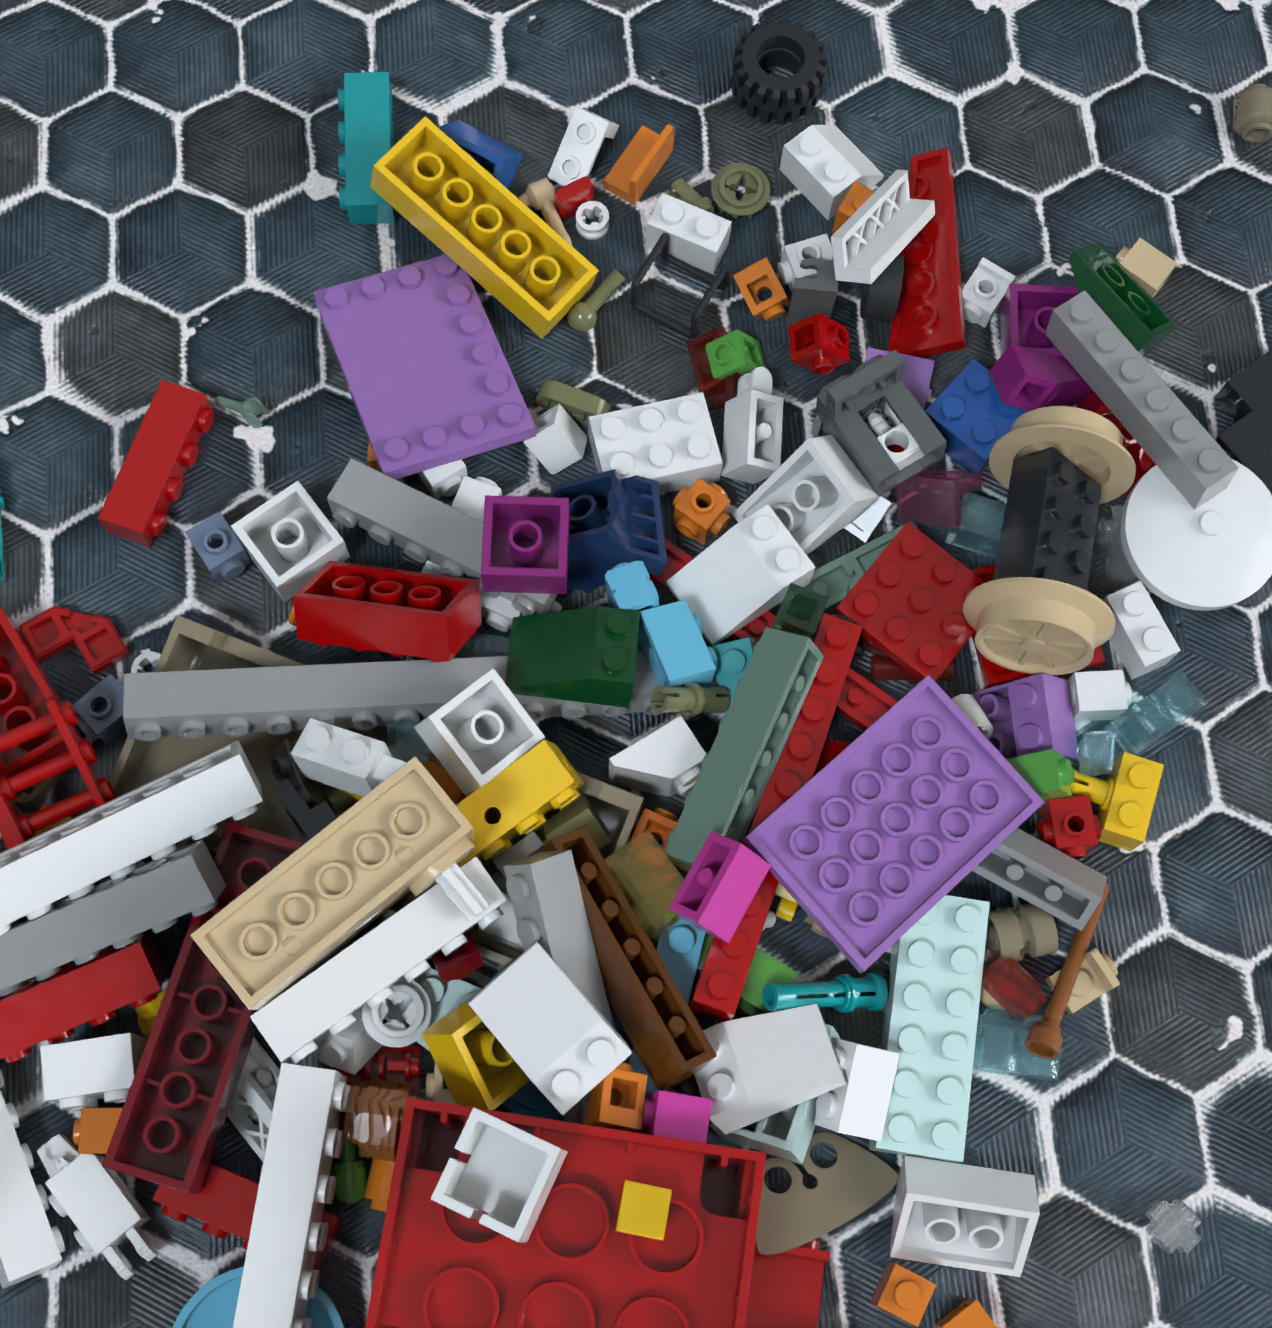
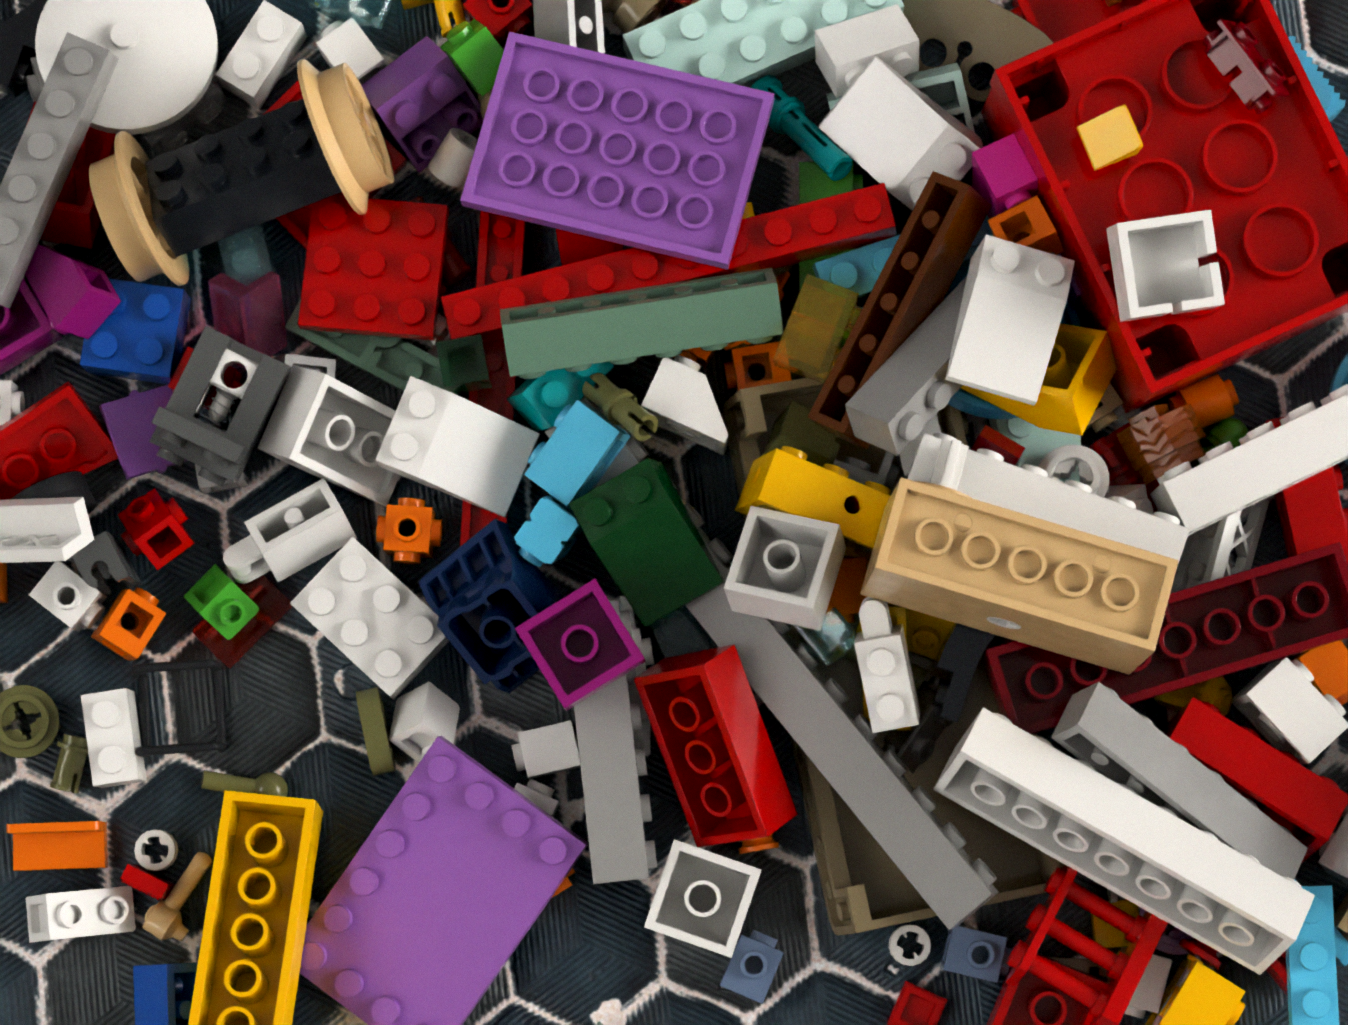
camera: 120 degrees left, 10 degrees up
(719, 886) = (788, 257): dark pink brick -> none
(1096, 752) = (413, 22): clear light blue plate -> none

